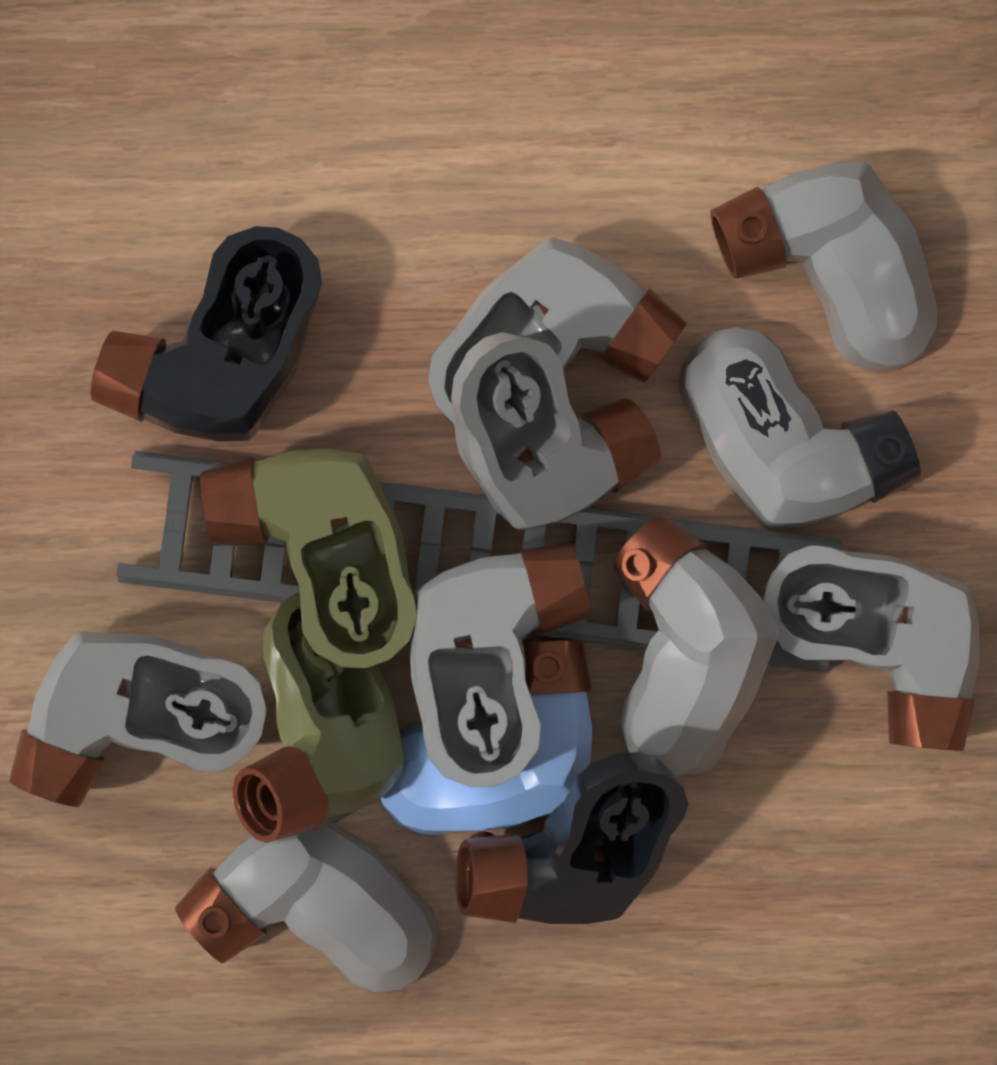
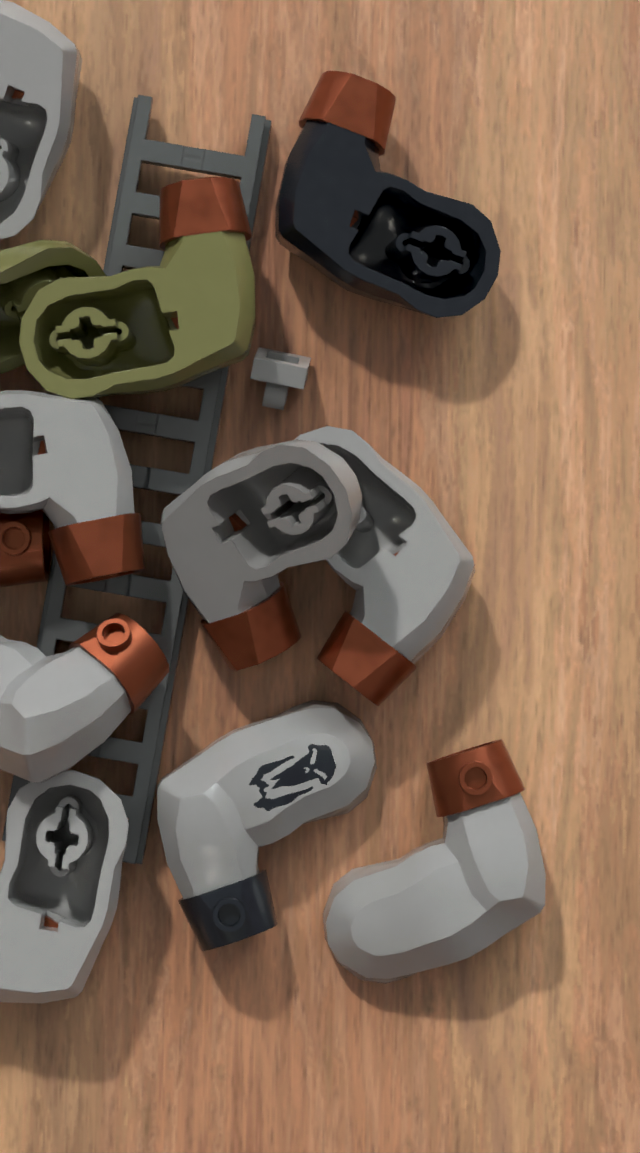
camera: 90 degrees right, 0 degrees up
(376, 430) = (280, 372): none -> light grey tile

